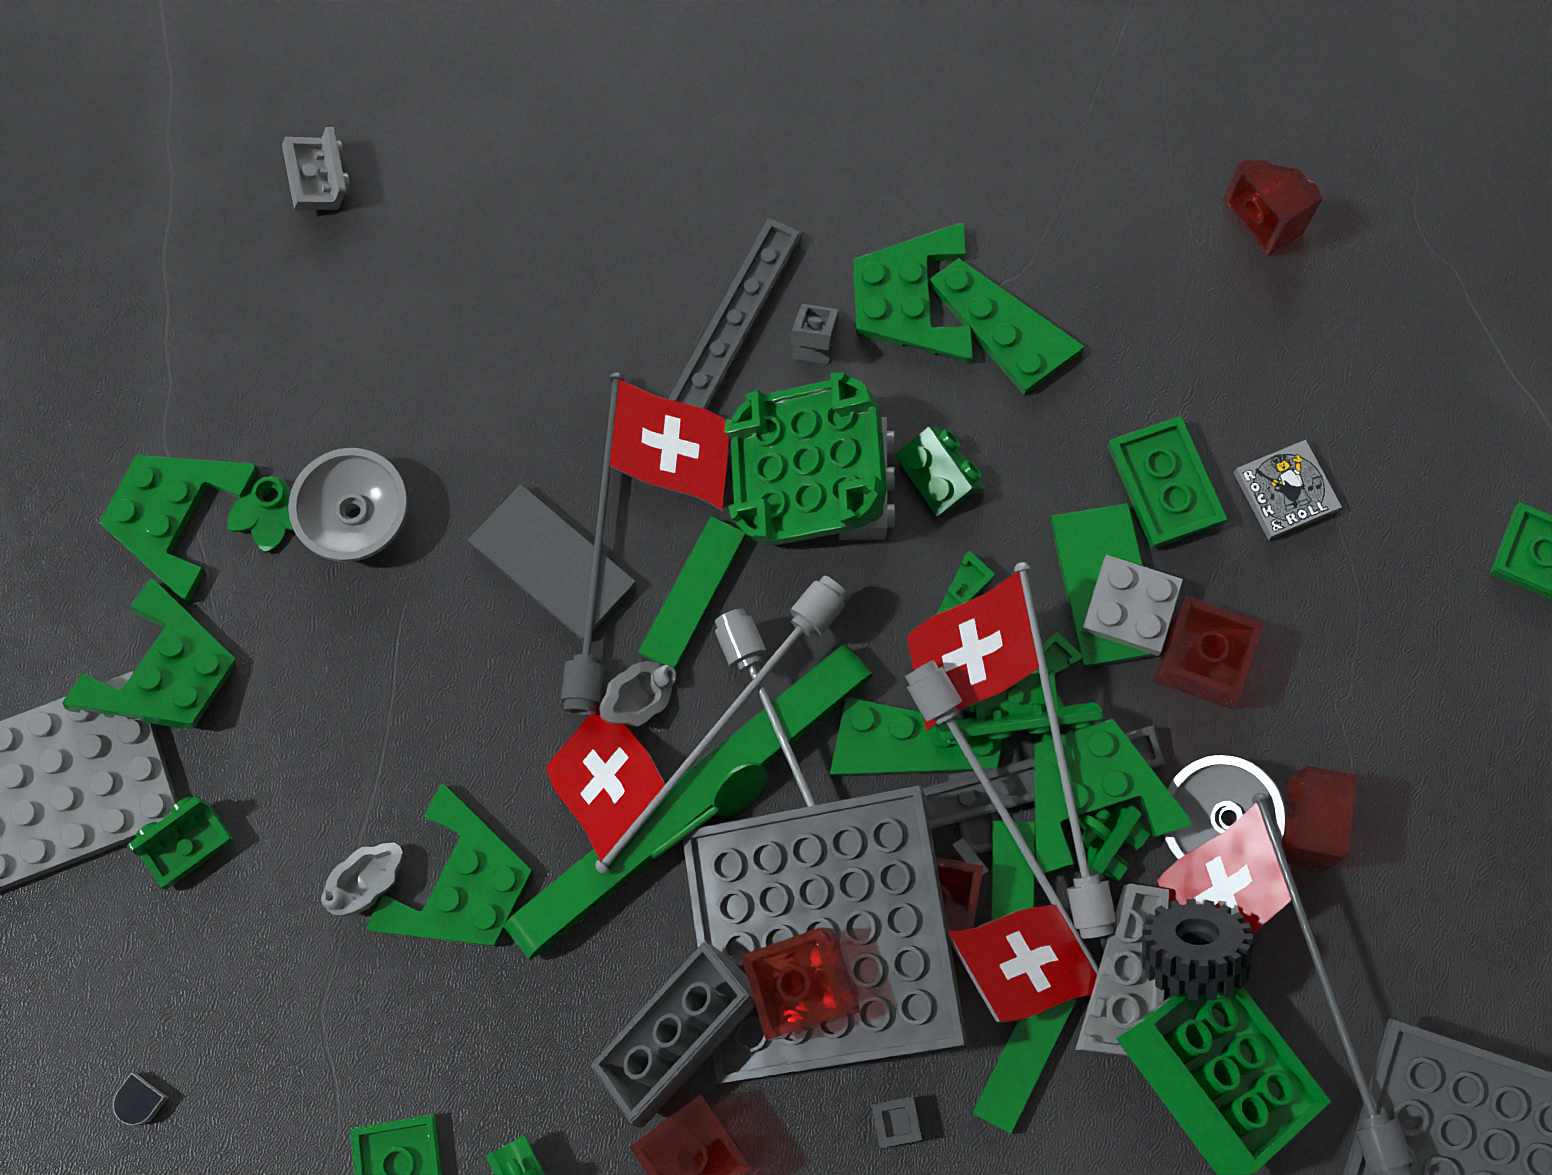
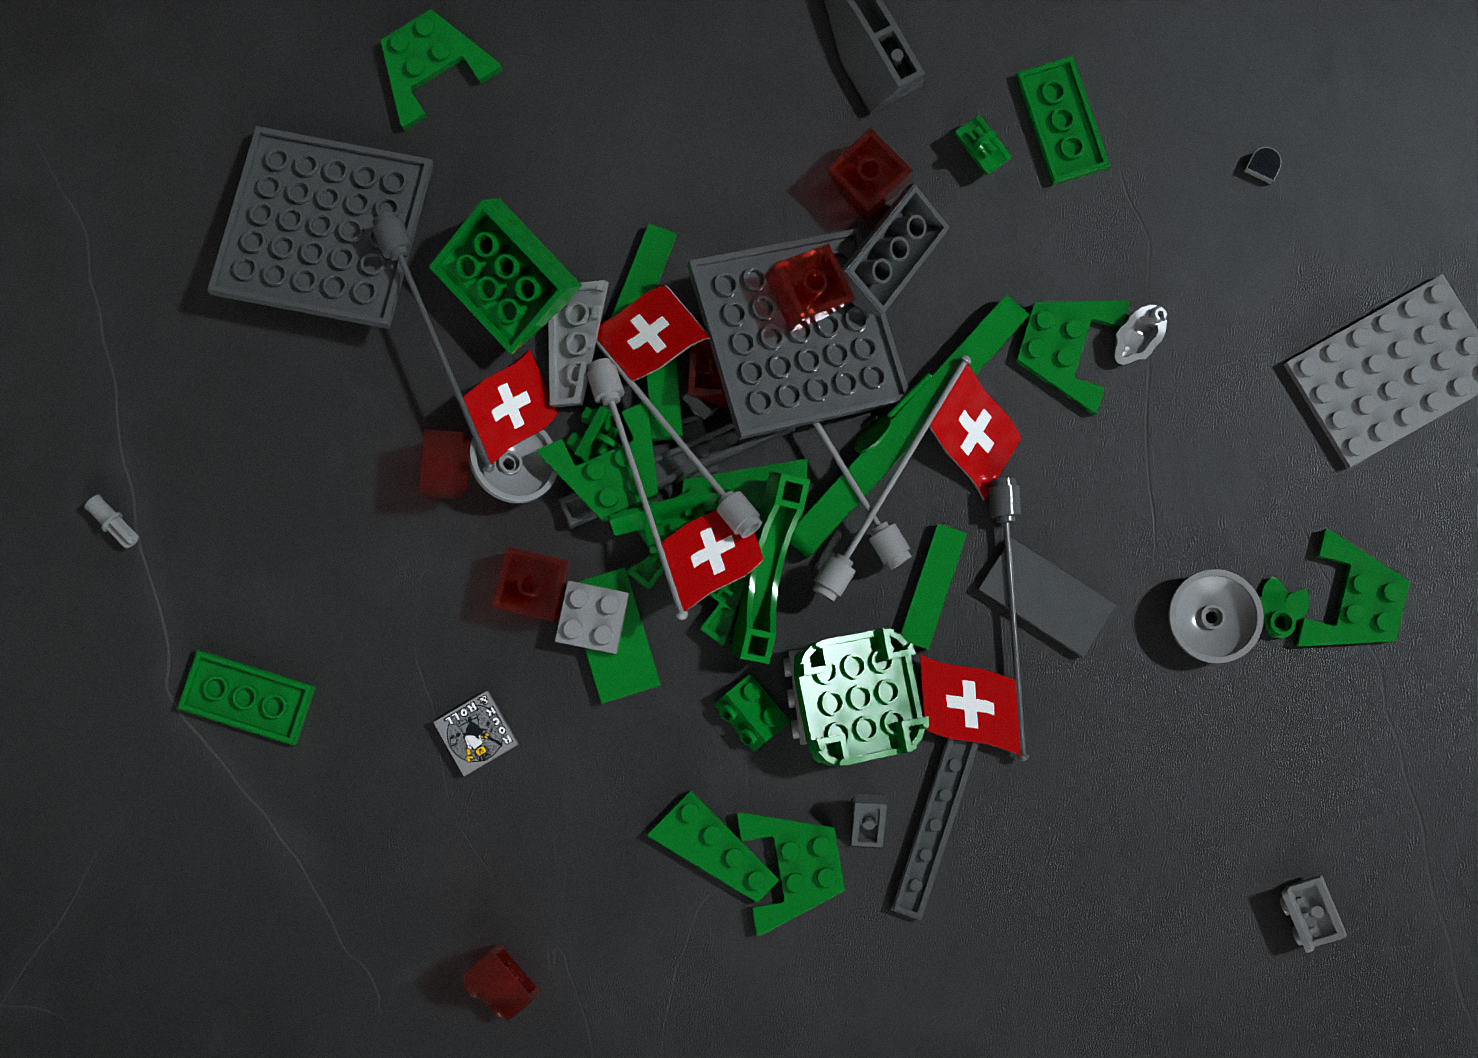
camera: 175 degrees right, 10 degrees up
(172, 680) = (1316, 467): green wing -> none
(181, 841) = (1278, 343): green bracket -> none
(637, 693) = (961, 497): light grey arm -> none
(879, 691) = (756, 617): none -> green arch
(896, 1122) = (729, 220): dark grey plate -> none
(1166, 482) = (572, 725): green plate -> none
(1197, 949) = (523, 335): black tyre -> none

